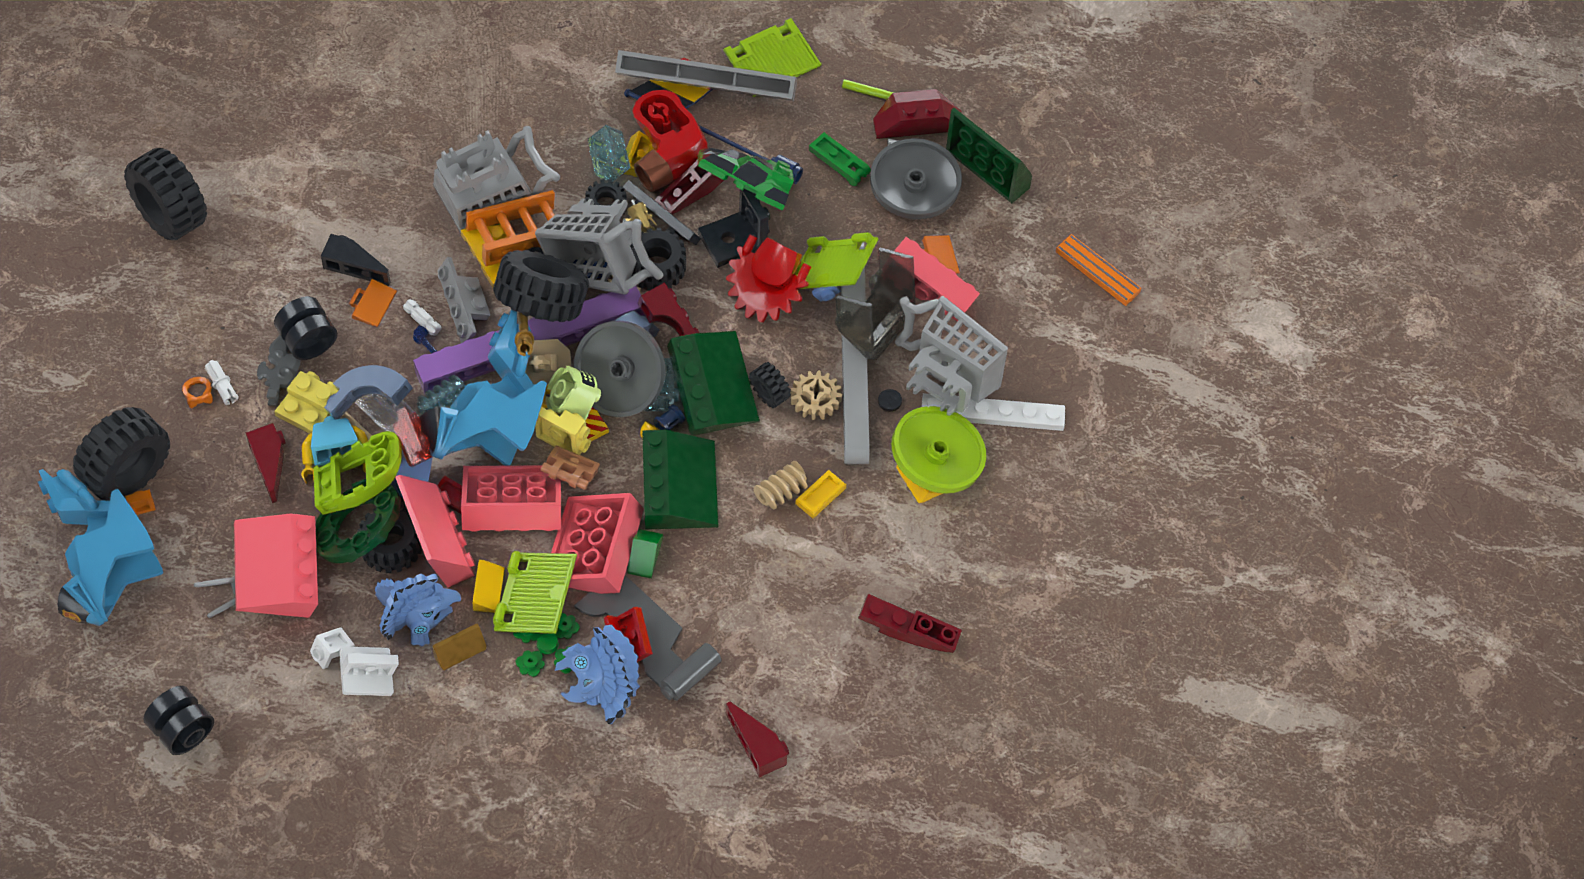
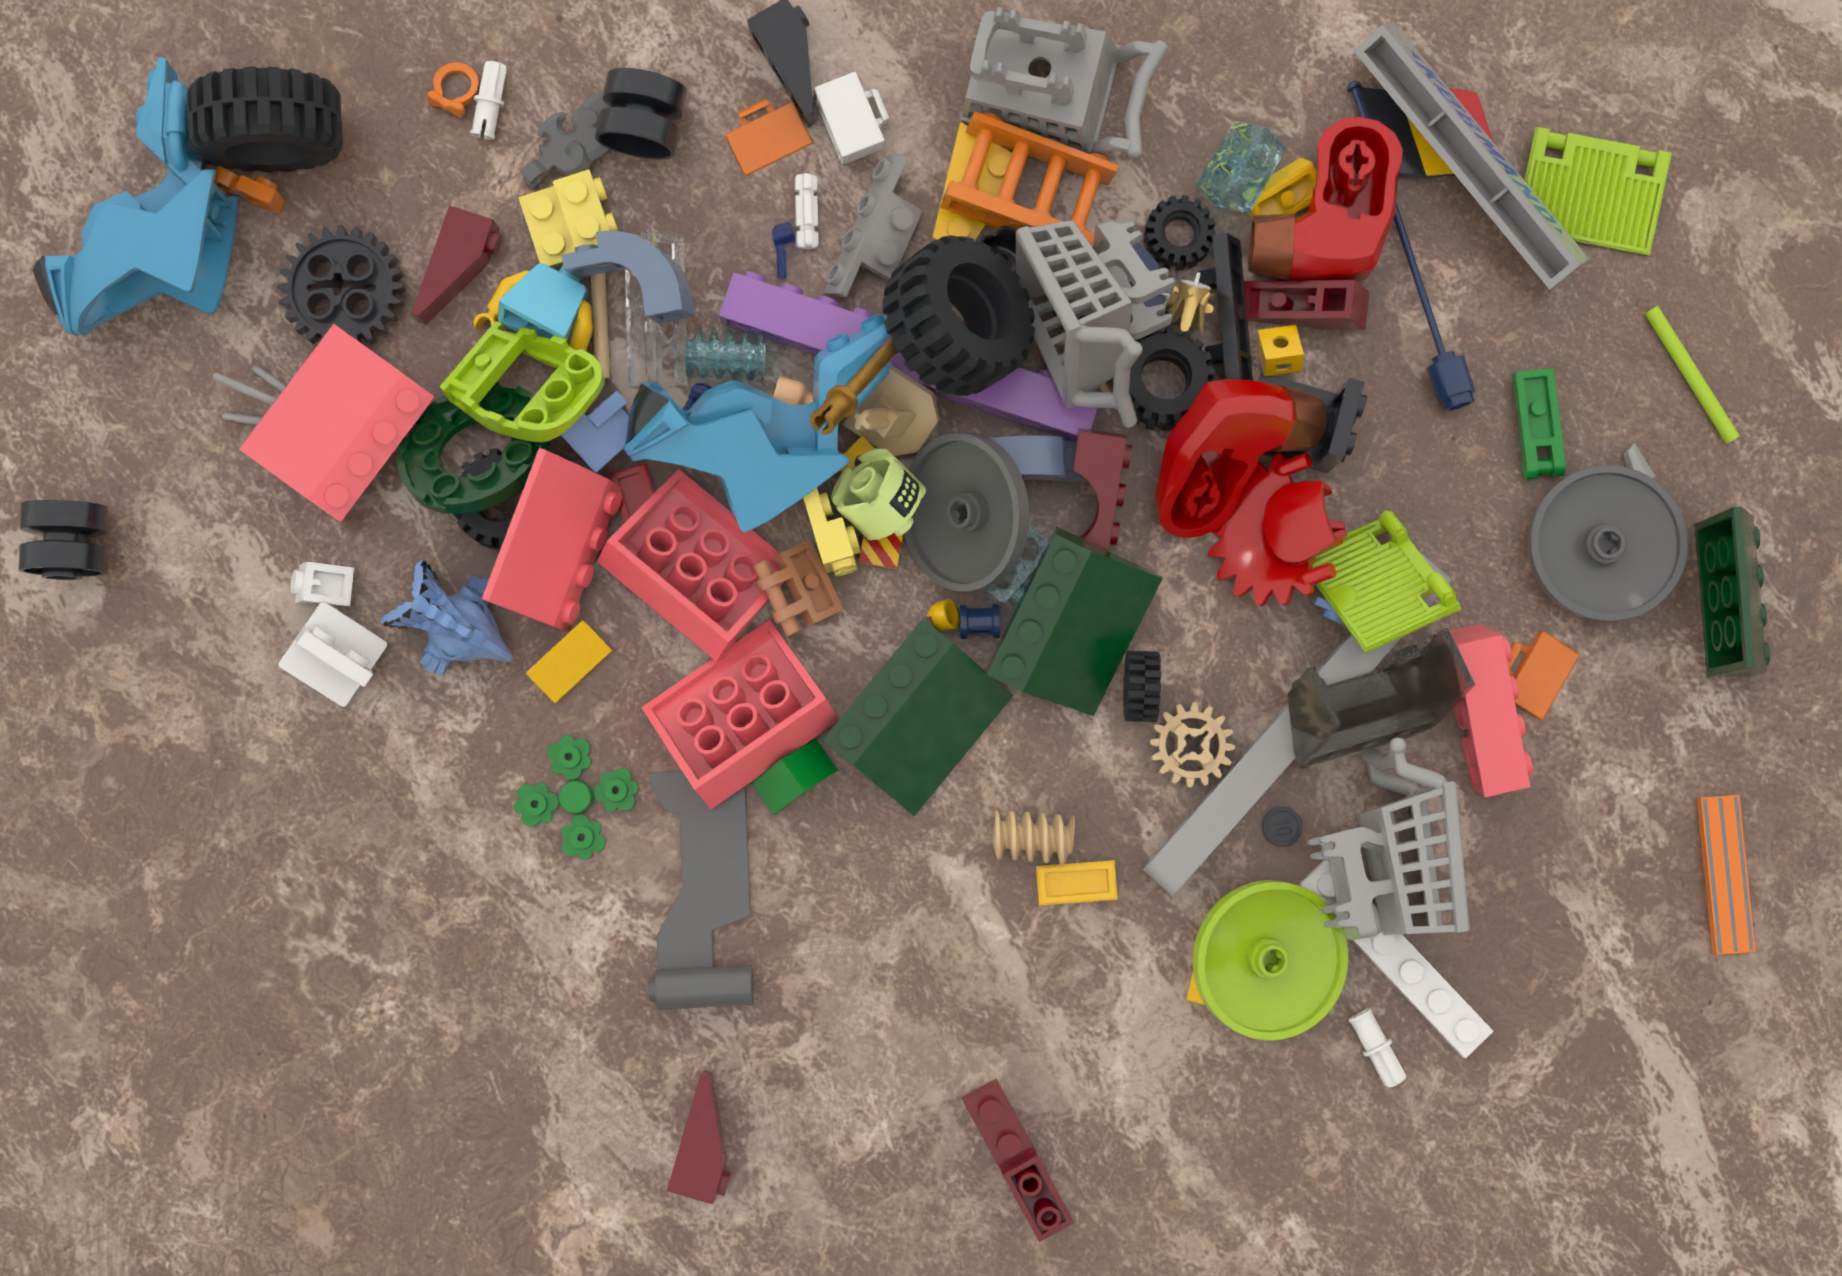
camera: 45 degrees right, 25 degrees up
(219, 511) = (344, 254): none -> black gear
(407, 264) = (850, 117): none -> white piece
(413, 442) = (613, 404): clear red bracket -> none
(459, 647) = (467, 715): pearl gold slope -> none
(536, 593) = (613, 721): lime window -> none
(604, 672) = (599, 903): medium blue piece -> none
(633, 627) = (667, 878): red bracket -> none
(694, 216) = (1271, 355): none -> yellow piece
(710, 262) = (1220, 444): none -> red piece
(761, 176) = (1384, 376): wedge -> none
(913, 114) = (1705, 441): dark red wedge -> none
(1022, 452) = (1377, 1048): none -> white axle

